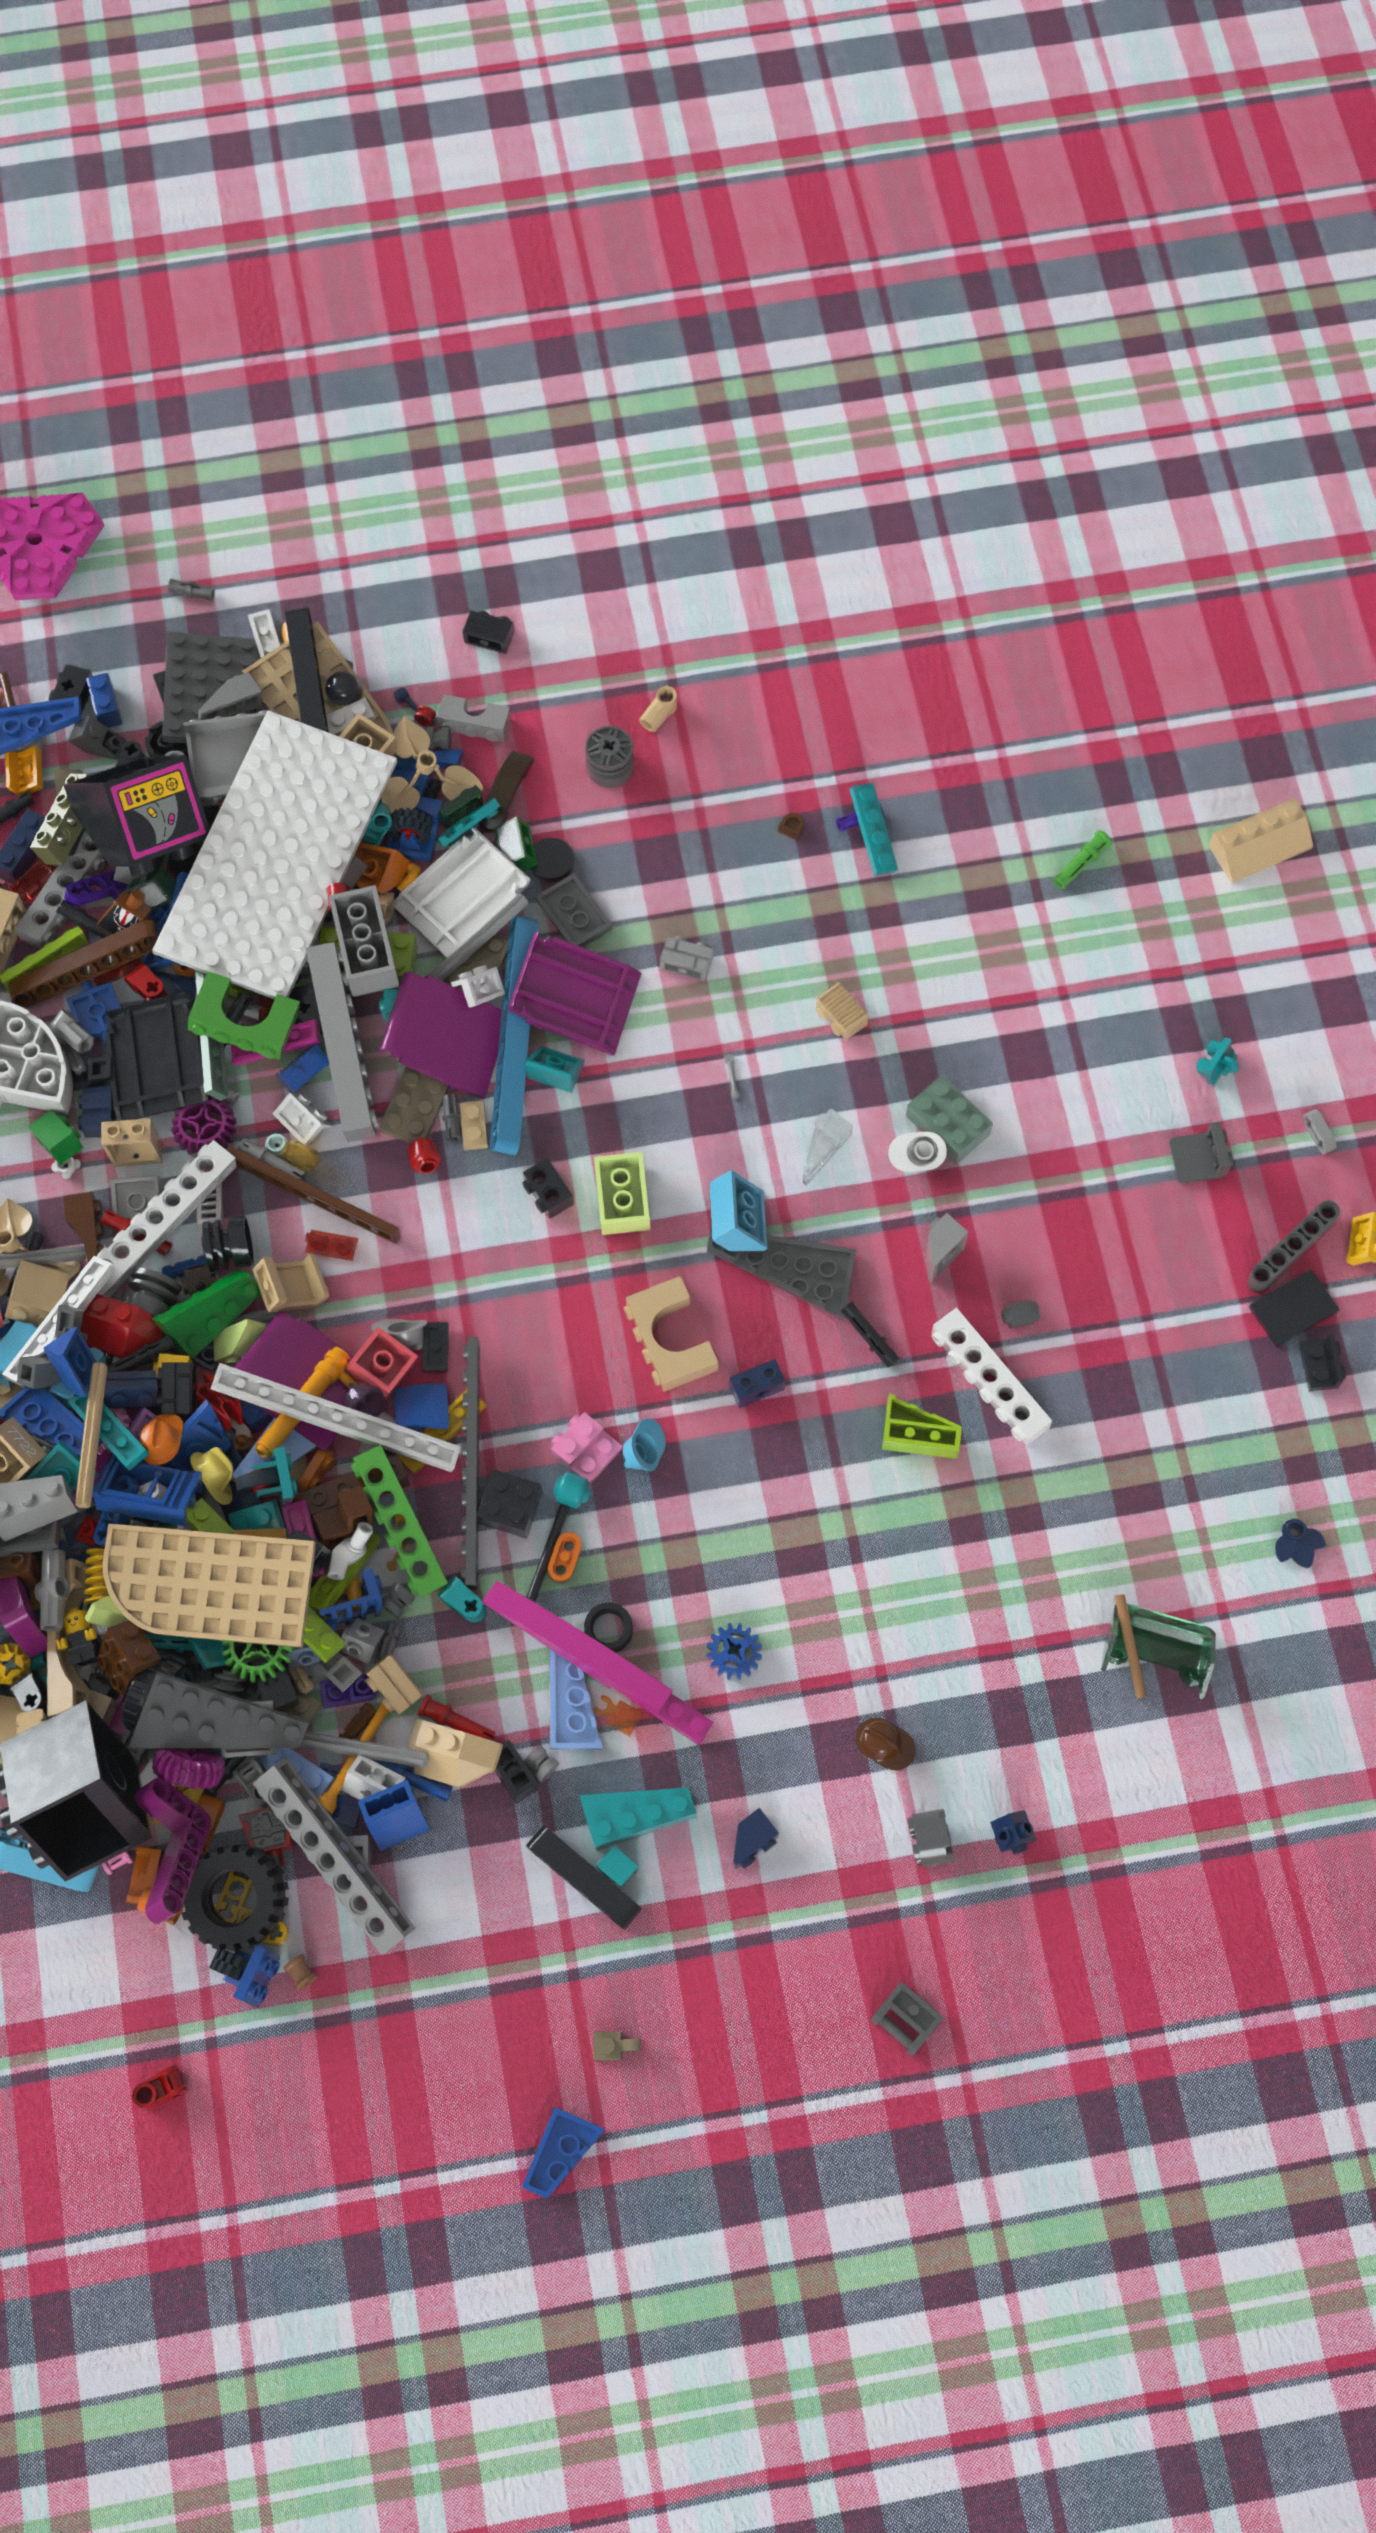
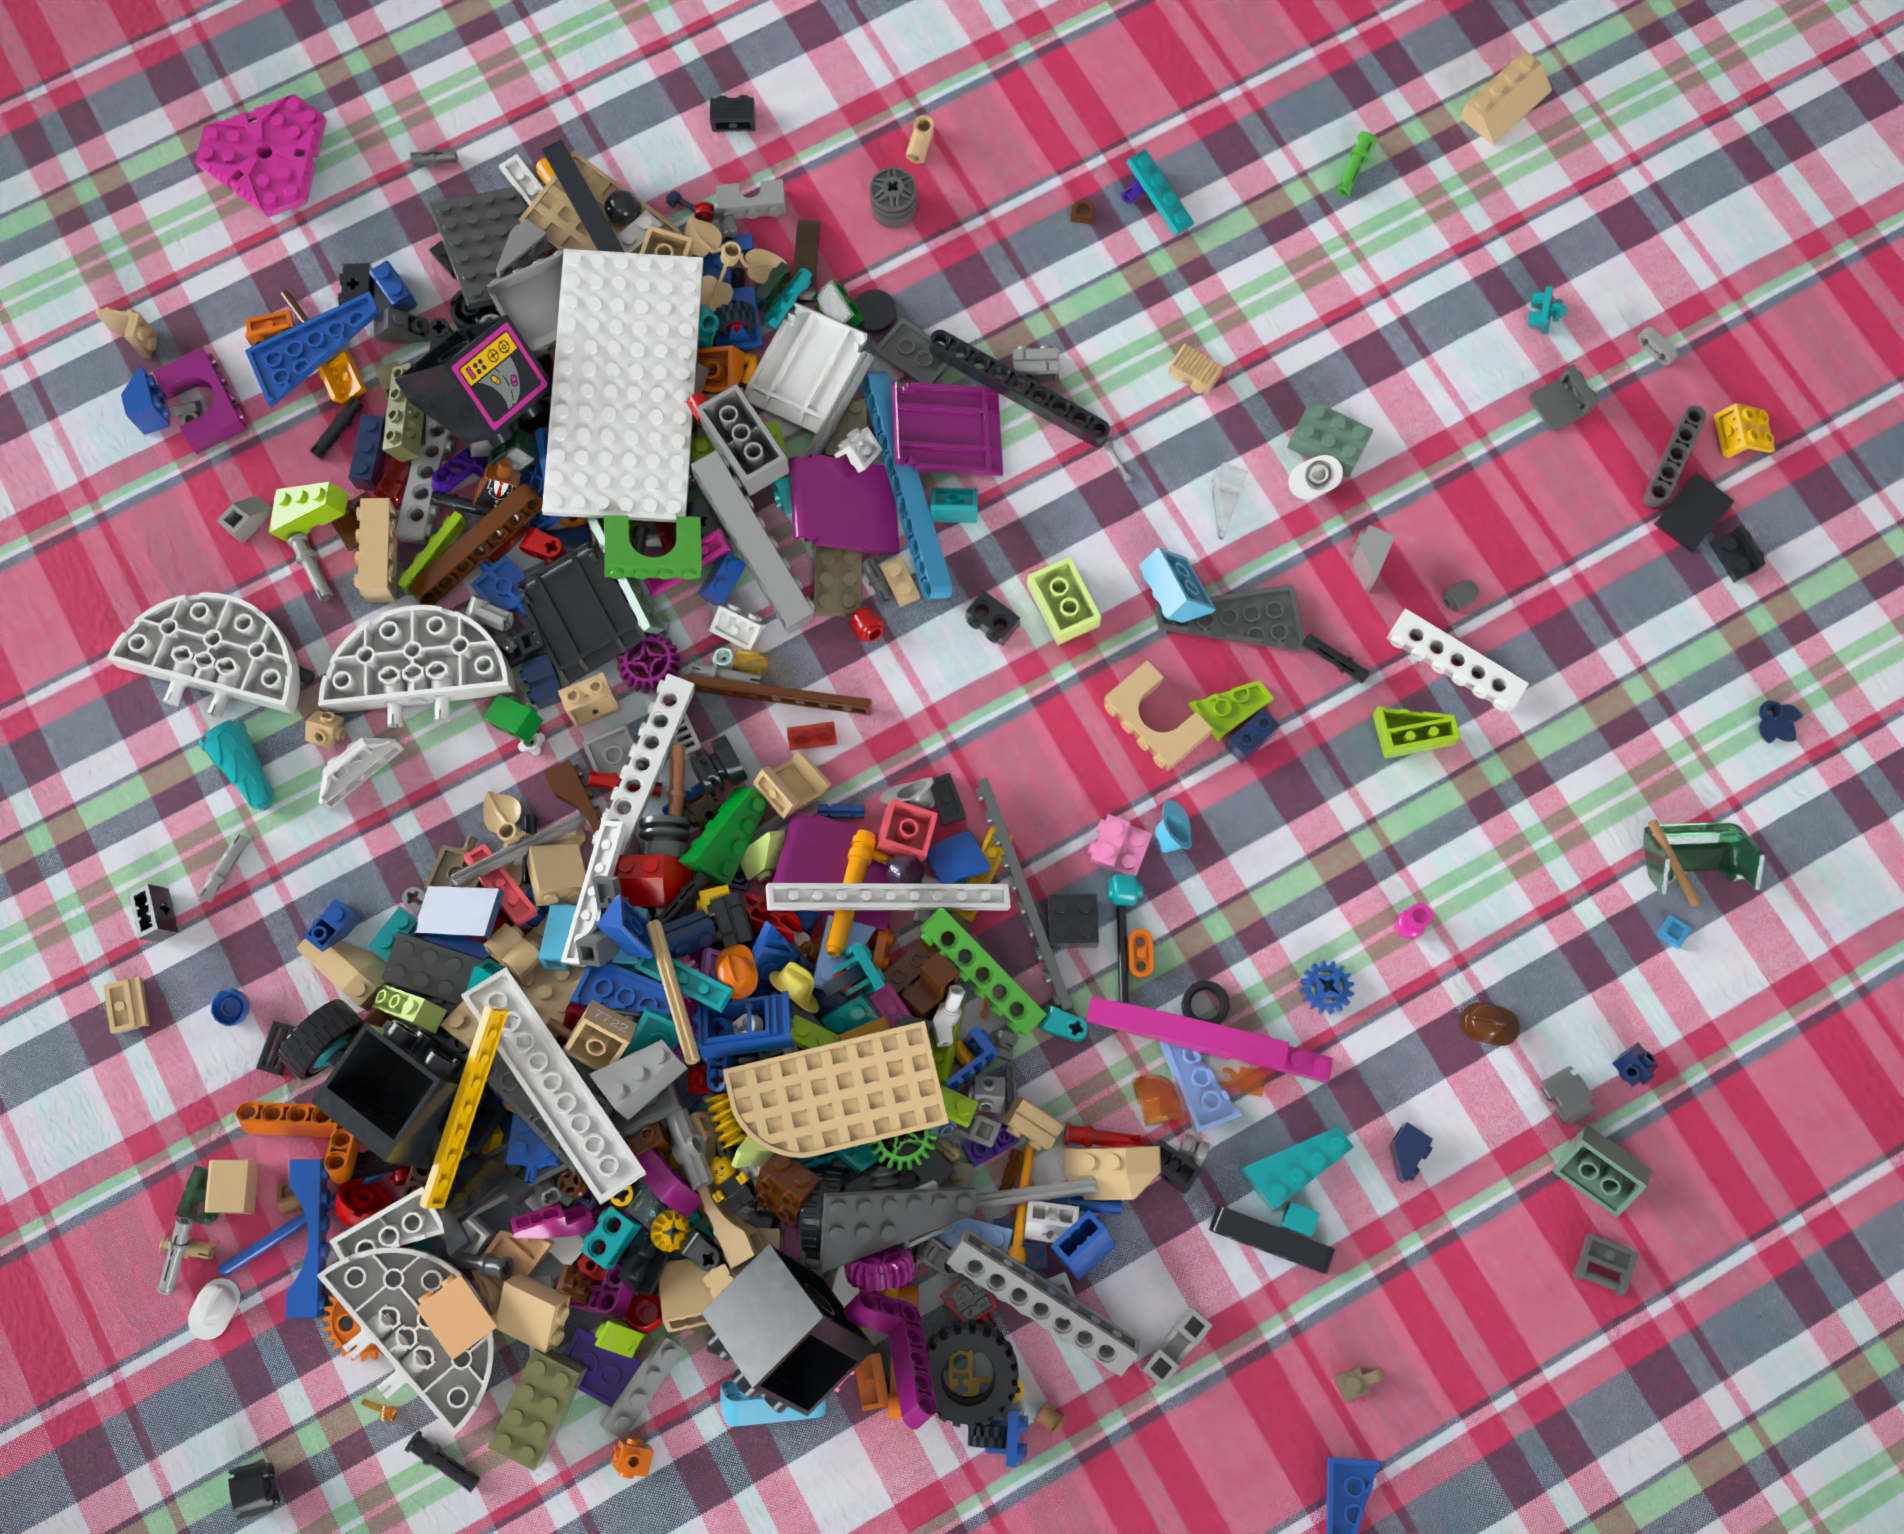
camera: 20 degrees left, 5 degrees up
(186, 1239) = (676, 784): none -> nougat pin
(331, 1325) = (842, 810): none -> blue axle
(453, 1944) = (1176, 1346): none -> light grey arch
(522, 1702) = (1157, 1099): none -> clear orange brick
(664, 985) = (1014, 378): none -> black beam
(743, 1351) = (1232, 708): none -> lime wing
(842, 1614) = (1413, 921): none -> dark pink piece
(939, 1925) = (1602, 1171): none -> sand green slope
(1108, 1716) = (1674, 931): none -> dark azure tile

